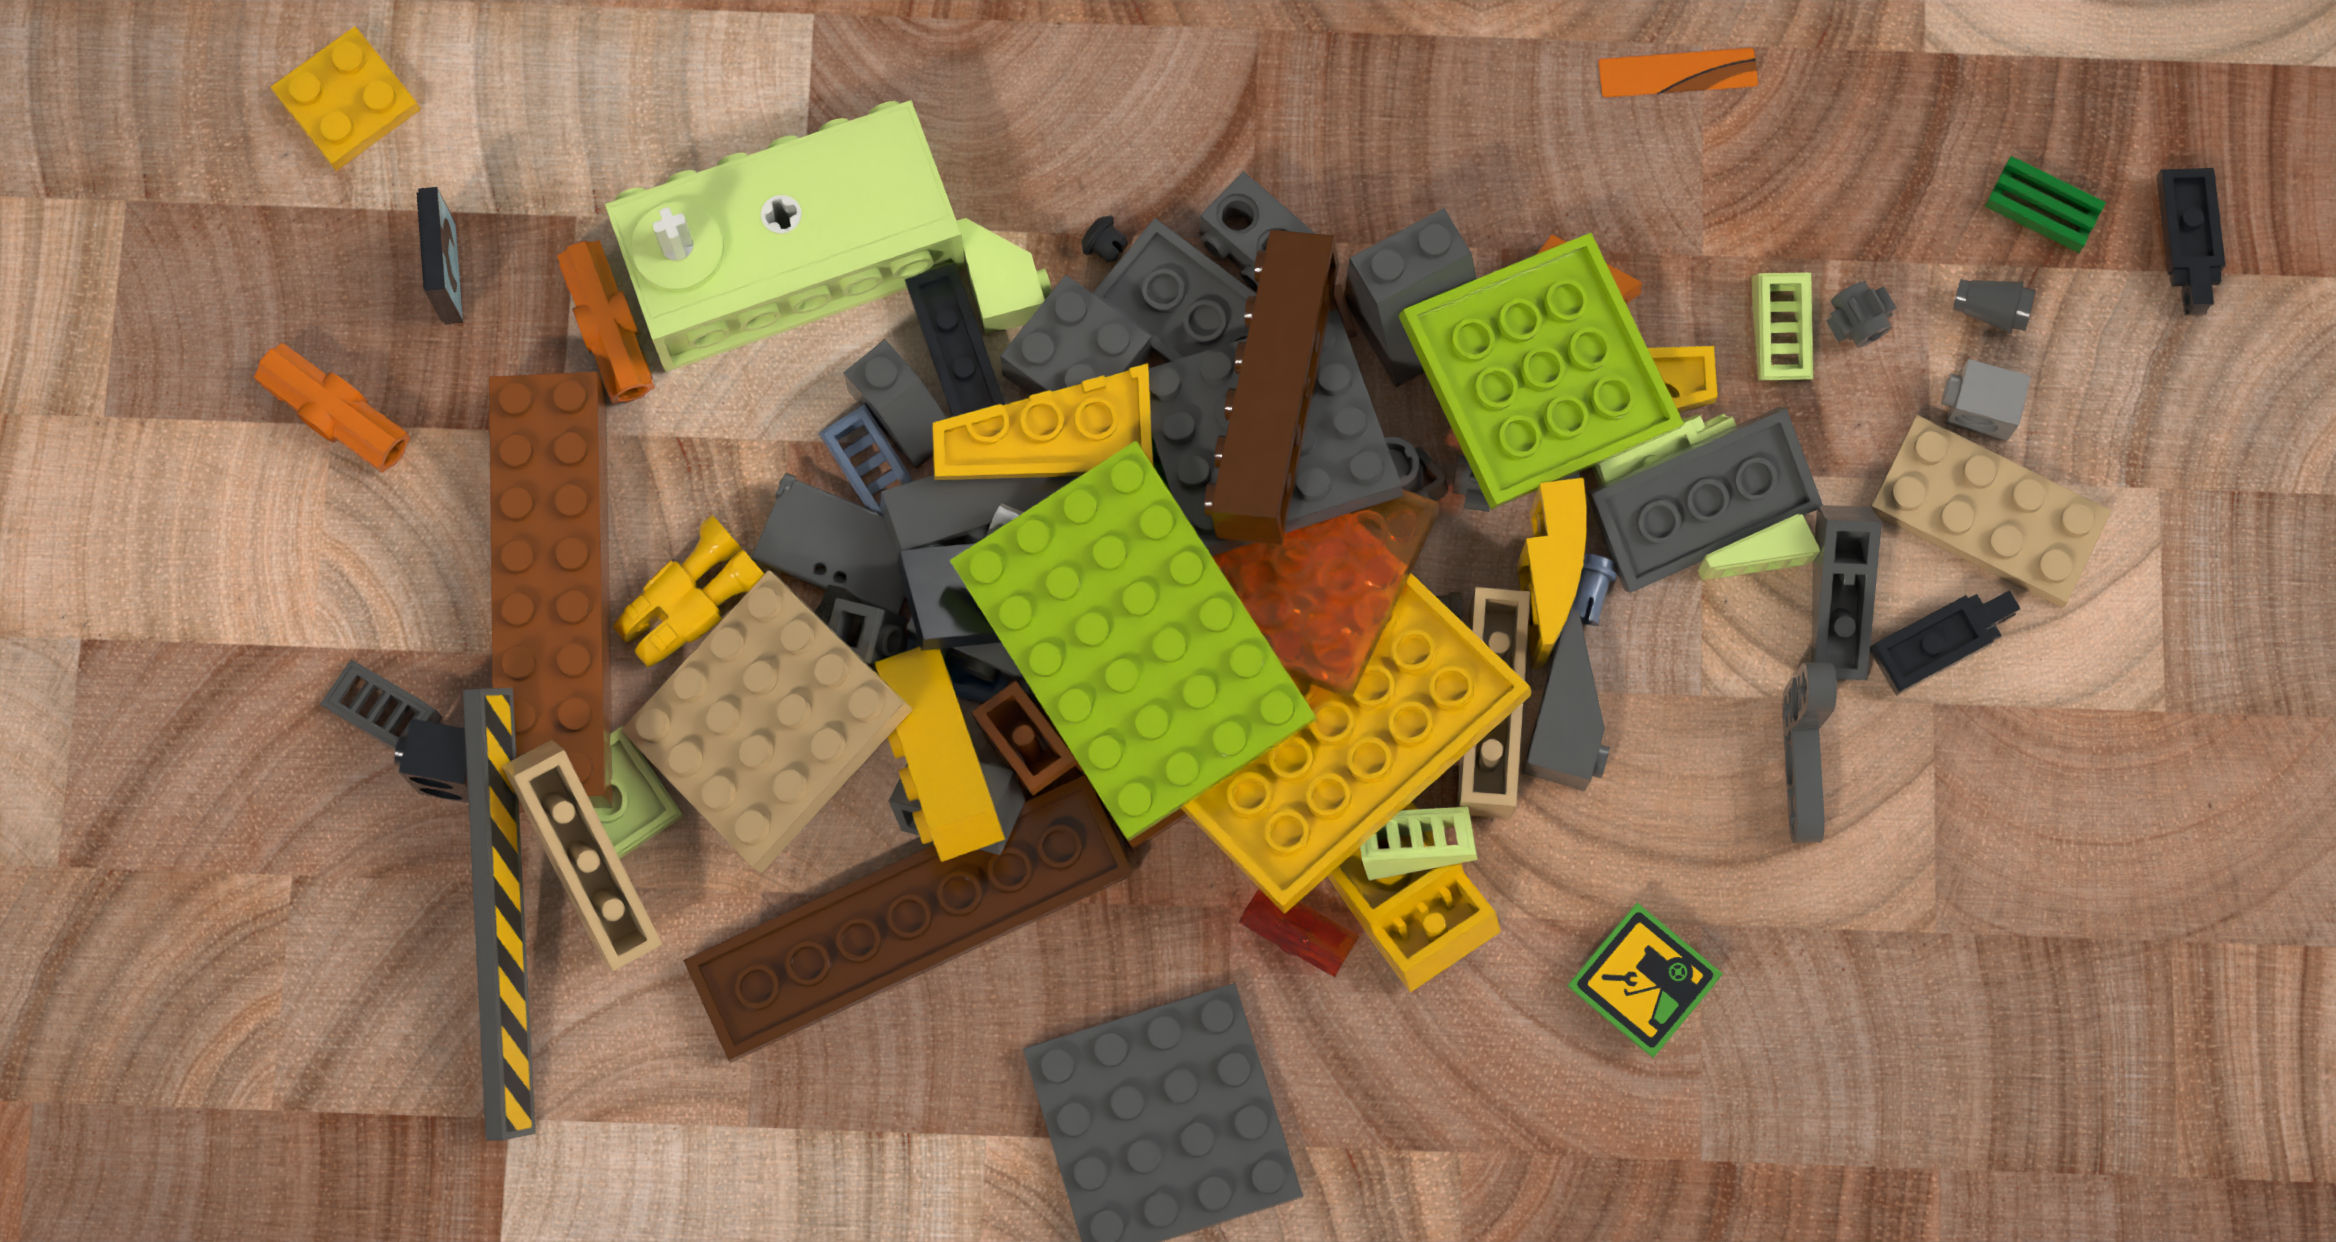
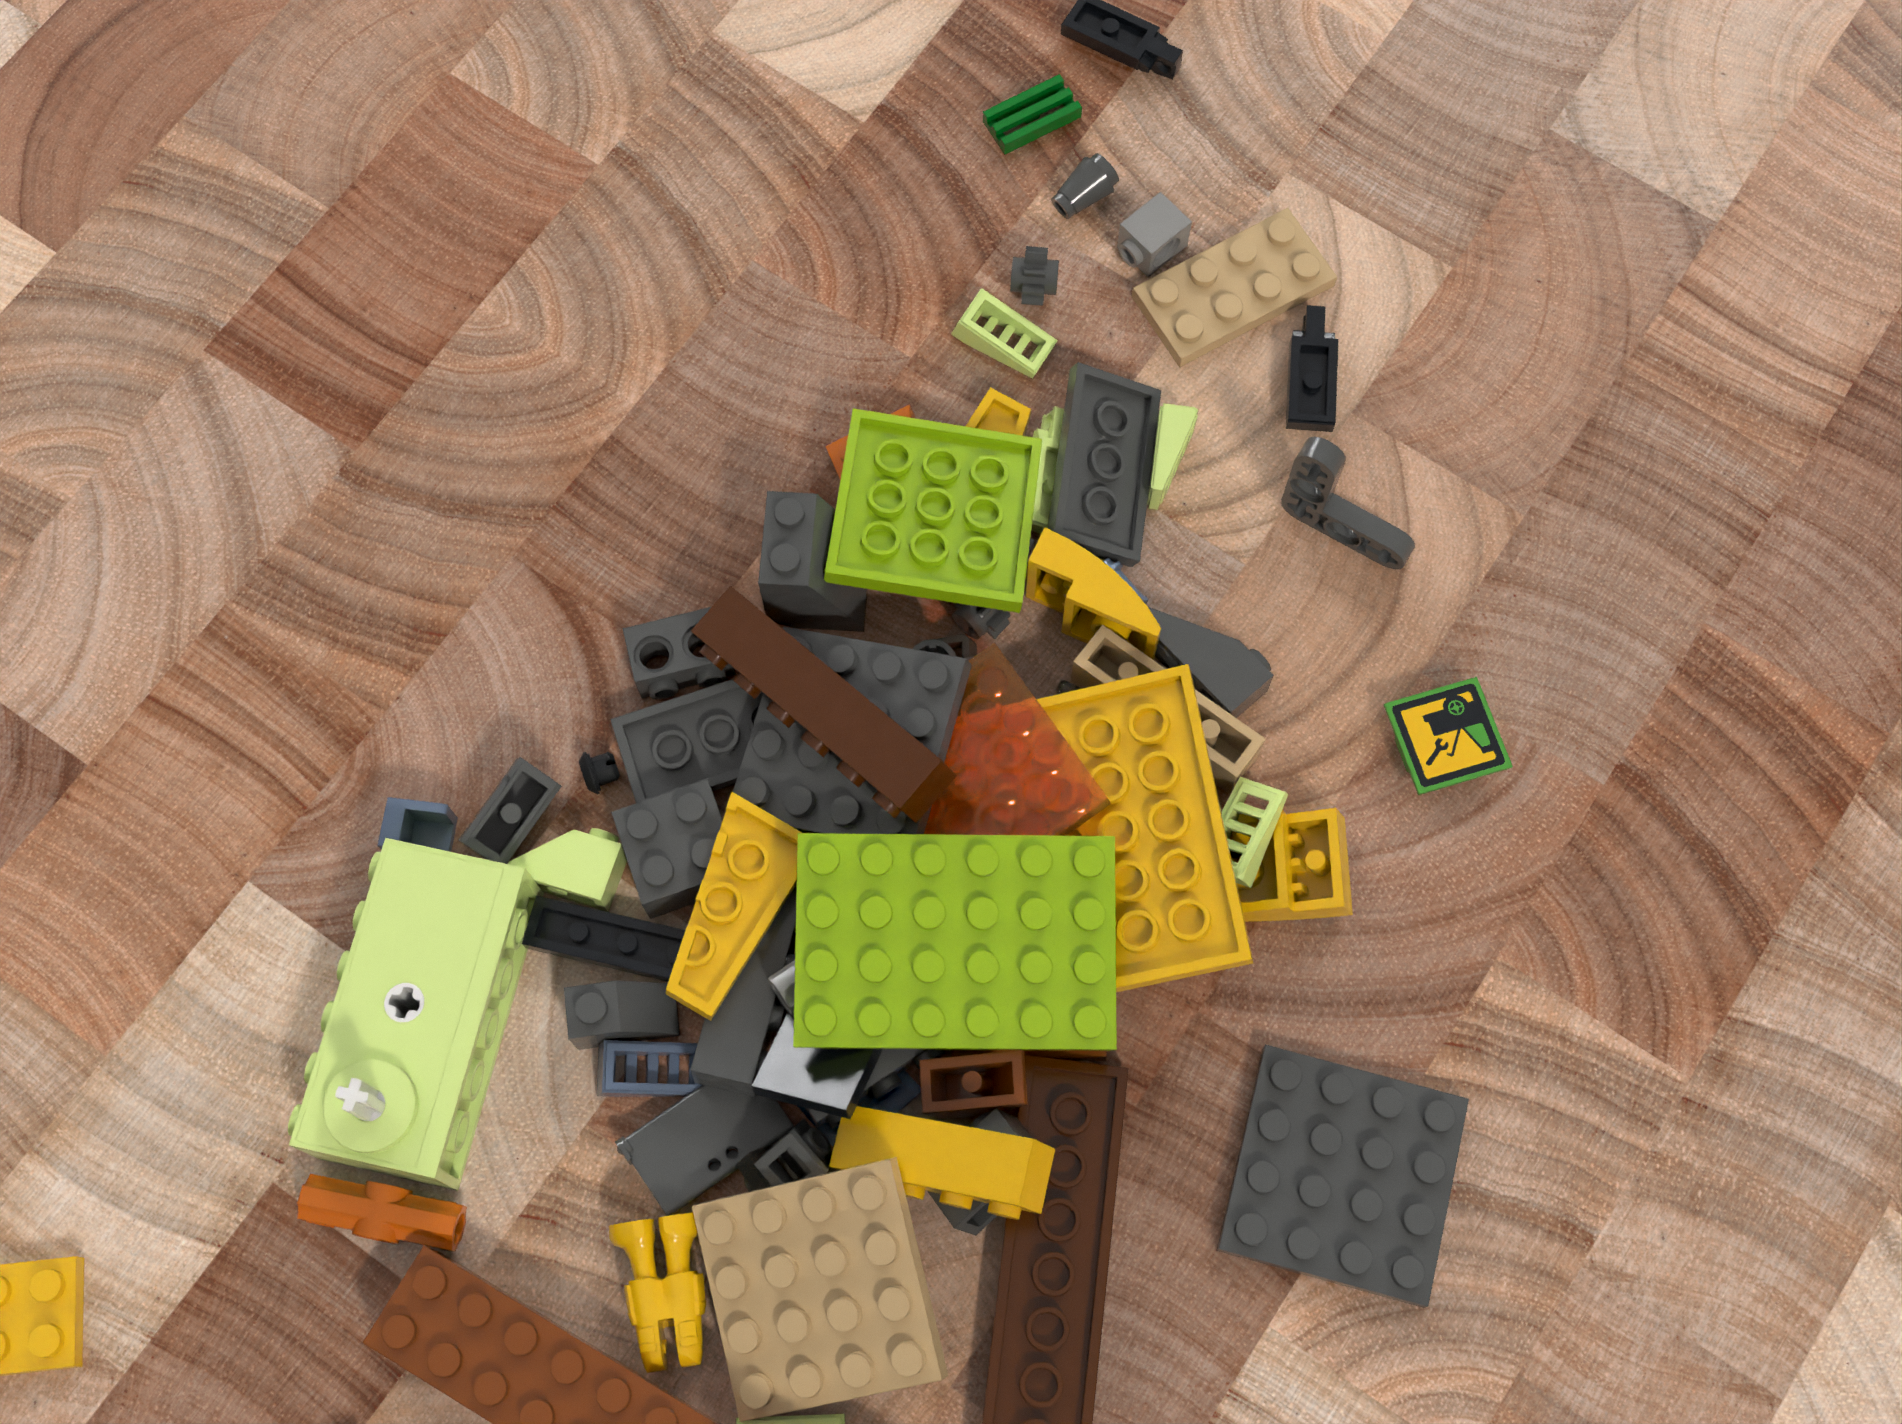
camera: 55 degrees left, 5 degrees down
(439, 255) = (224, 1319): black tile -> none
(948, 123) = (418, 823): none -> sand blue panel
(1010, 189) = (510, 812): none -> dark grey brick
(1300, 932) = (1273, 958): clear red plate -> none
(1678, 72) = (761, 289): orange sticker -> none
(1845, 588) = (1233, 413): dark grey slope -> none

